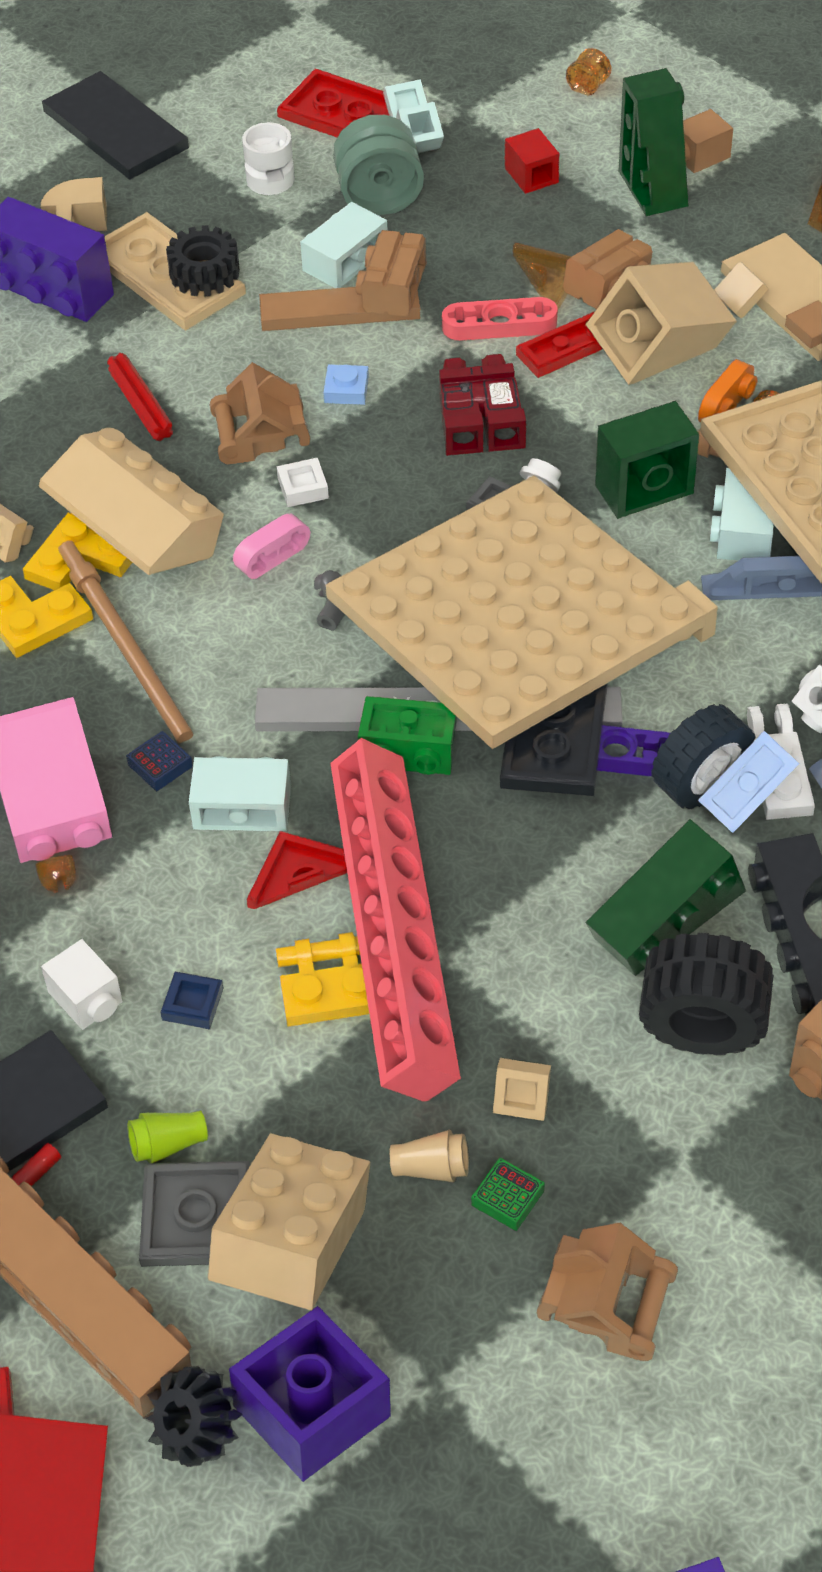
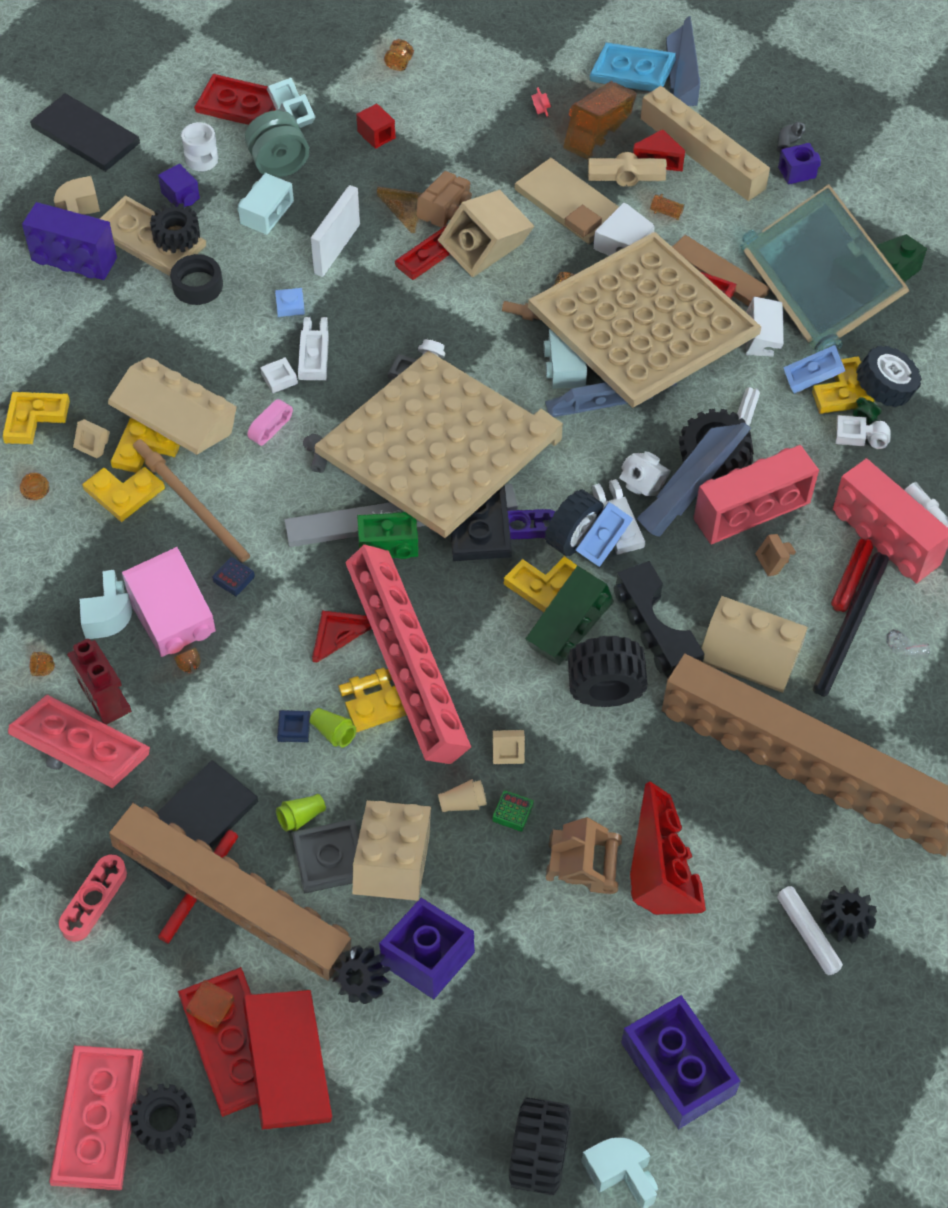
camera: 15 degrees left, 5 degrees up
(82, 984) = (225, 728): white brick -> none
(140, 397) = (155, 329): red axle -> none
(218, 355) = (201, 294): none -> black tyre
(225, 206) = (179, 186): none -> dark purple brick
(240, 794) = (292, 590): light aqua brick -> none
(252, 1012) = (333, 727): none -> lime cone
(271, 411) = (246, 326): medium nougat piece -> none
(321, 309) = (266, 248): medium nougat tile -> none
(363, 455) = (313, 351): none -> white hinge
(392, 273) = (303, 217): medium nougat brick -> none
(439, 281) = (335, 231): none -> white tile
(477, 393) = (382, 305): dark red hips -> none
(509, 308) = (363, 252): coral beam -> none
(620, 842) = (535, 585): none -> yellow plate
(646, 459) = (497, 330): dark green brick -> none
(653, 141) = (456, 106): dark green wedge -> none
(706, 140) = (484, 98): medium nougat brick -> none
(729, 389) = (535, 281): orange plate -> none
(731, 1332) = (659, 863): none -> red wedge
(741, 290) = (531, 202): tan tile -> none
(786, 156) = (541, 102): none -> coral plate

